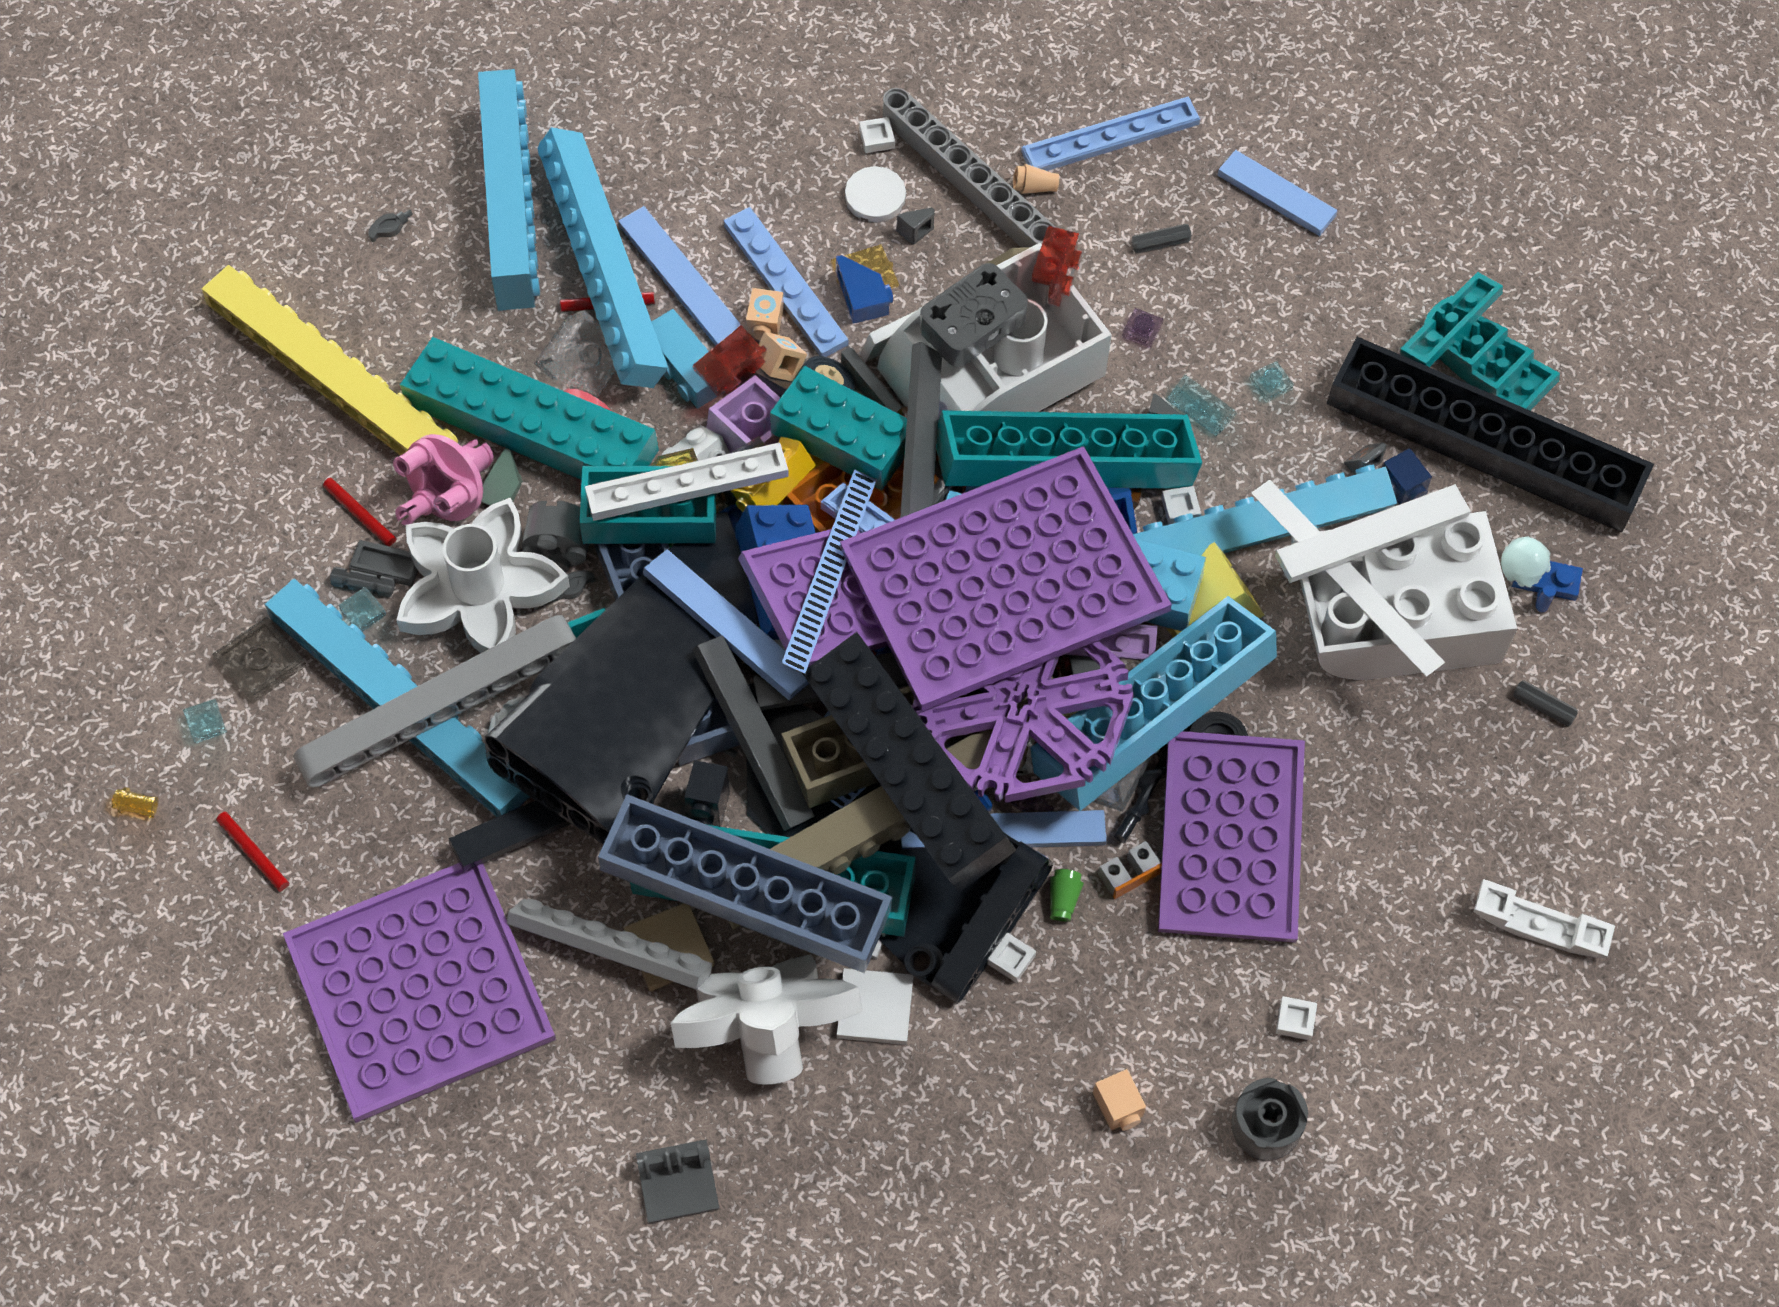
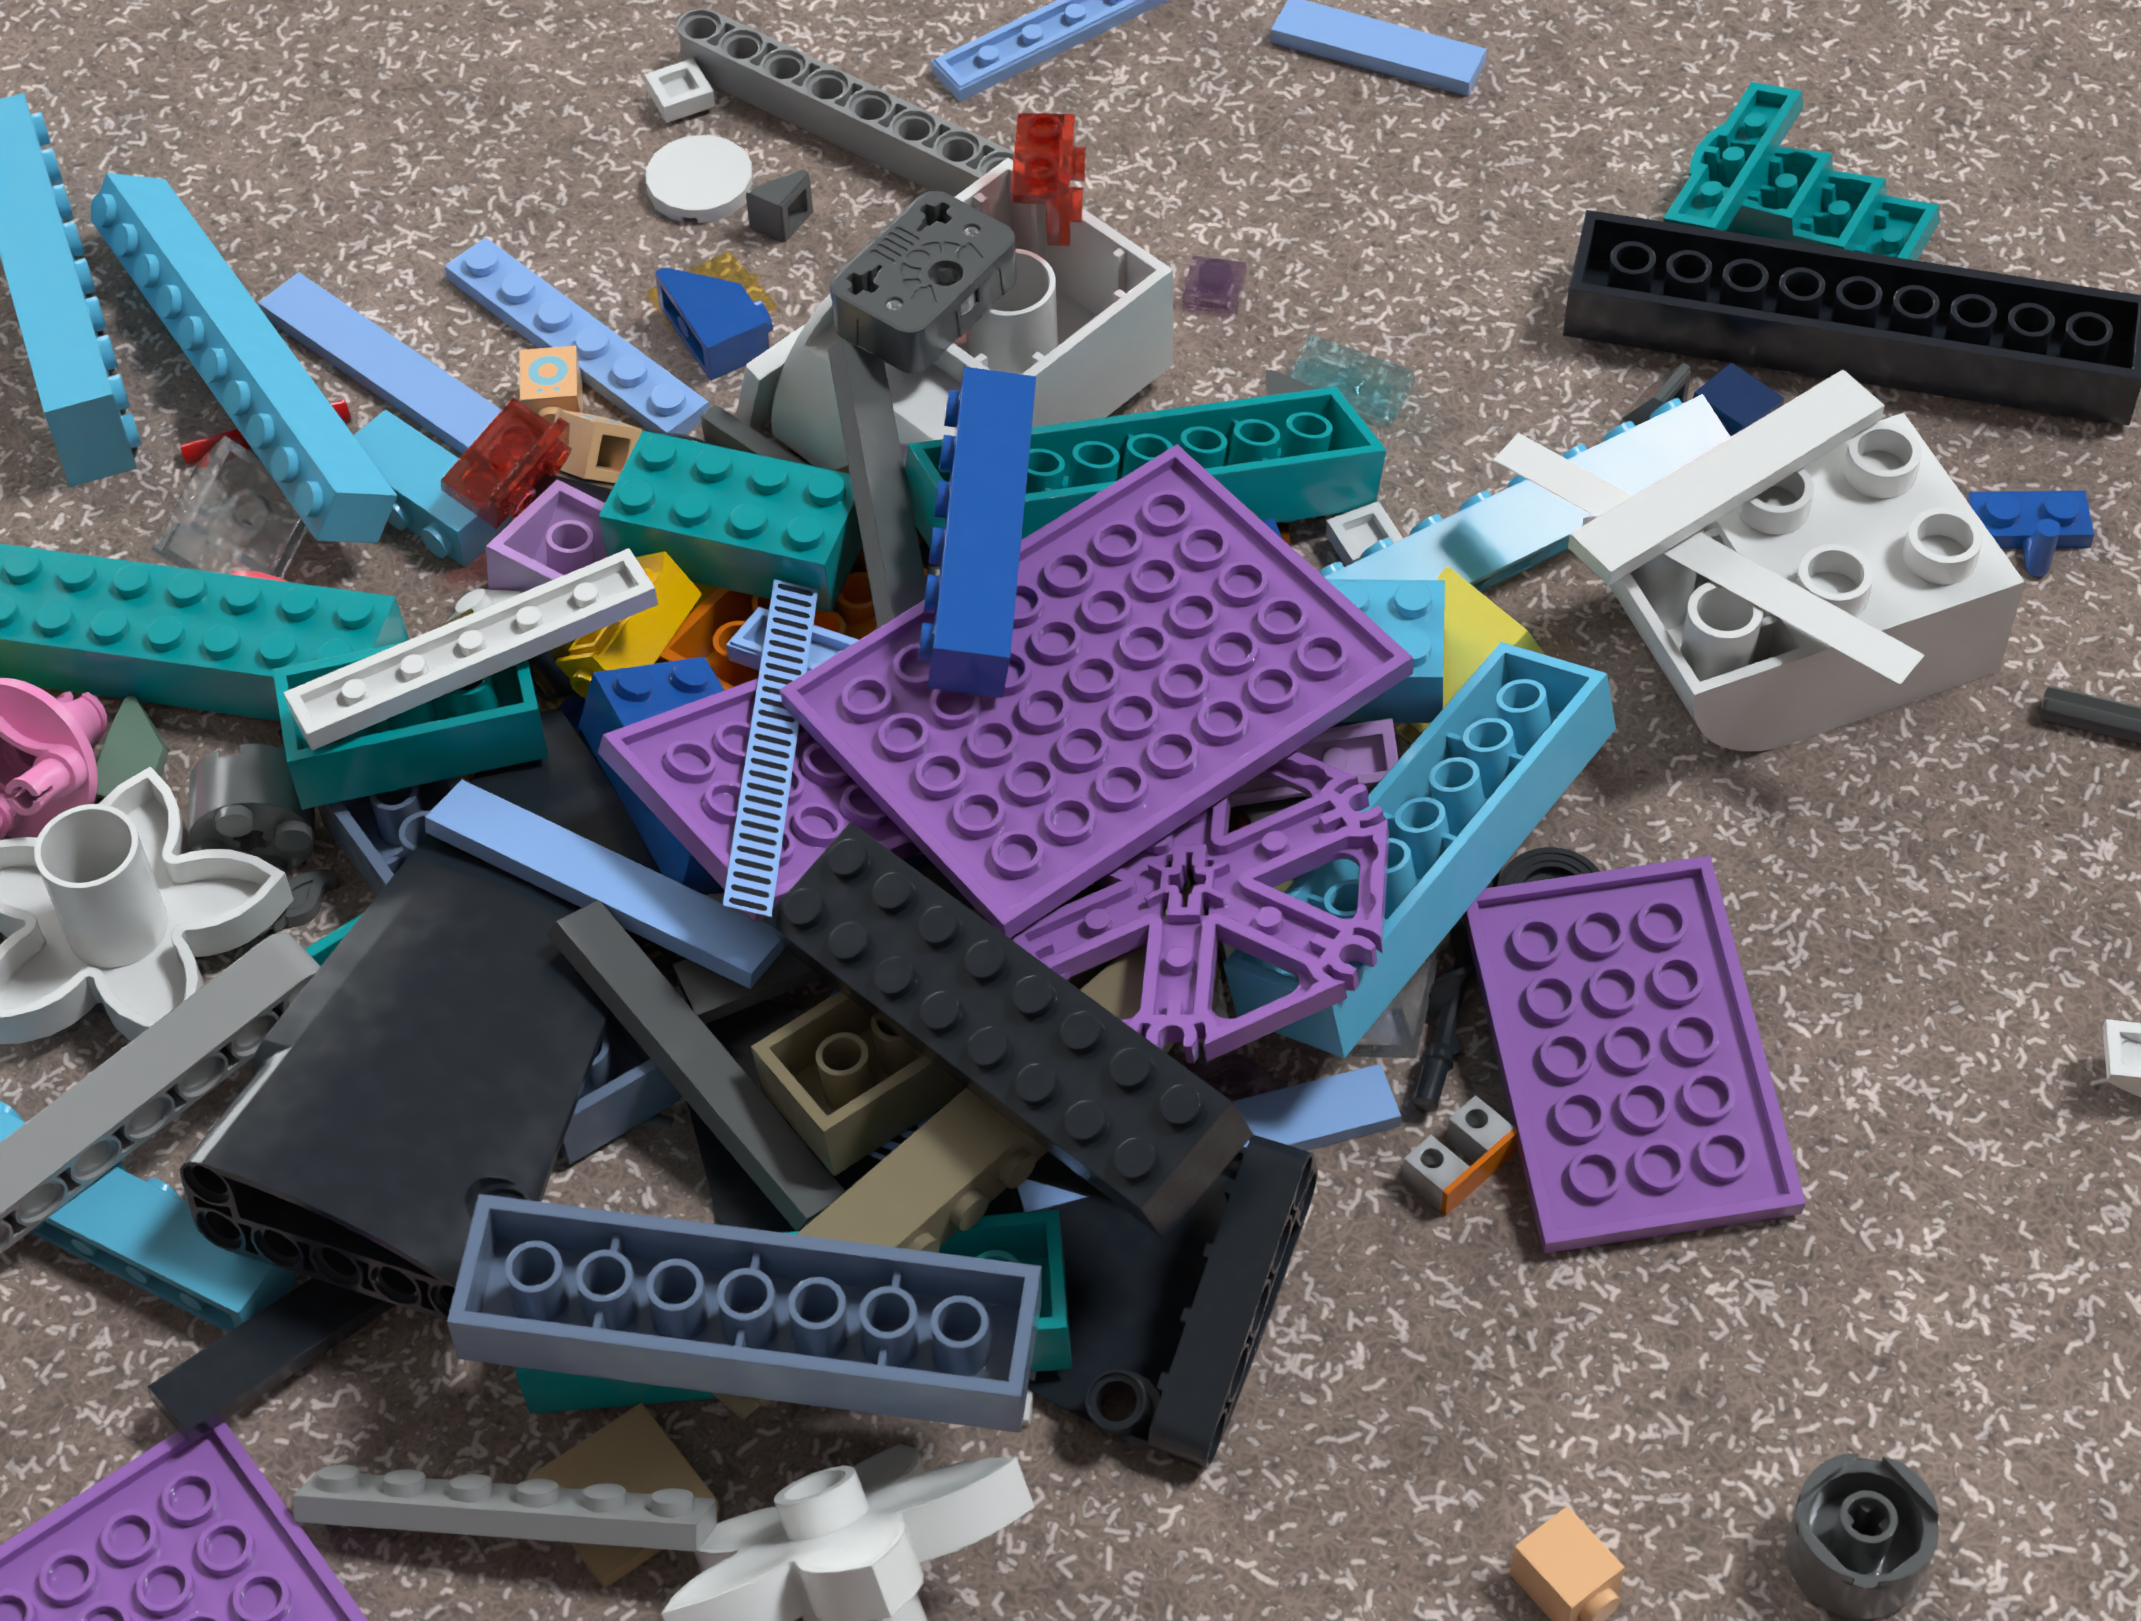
camera: 10 degrees left, 10 degrees down
(707, 793) = (633, 1172): black brick -> none
(884, 1007) = (1074, 1521): white tile -> none
(965, 478) = (981, 533): none -> blue brick
(1011, 957) = (1286, 1360): white plate -> none
(1034, 180) = (968, 102): light nougat cone -> none
(1064, 893) = (1351, 1223): bright green cone -> none
(1161, 238) = (1205, 147): dark grey axle -> none
(1271, 381) = (1459, 321): clear light blue plate -> none
(1296, 1018) = (1849, 1345): white plate -> none
(1525, 561) = (1994, 490): light aqua hair -> none

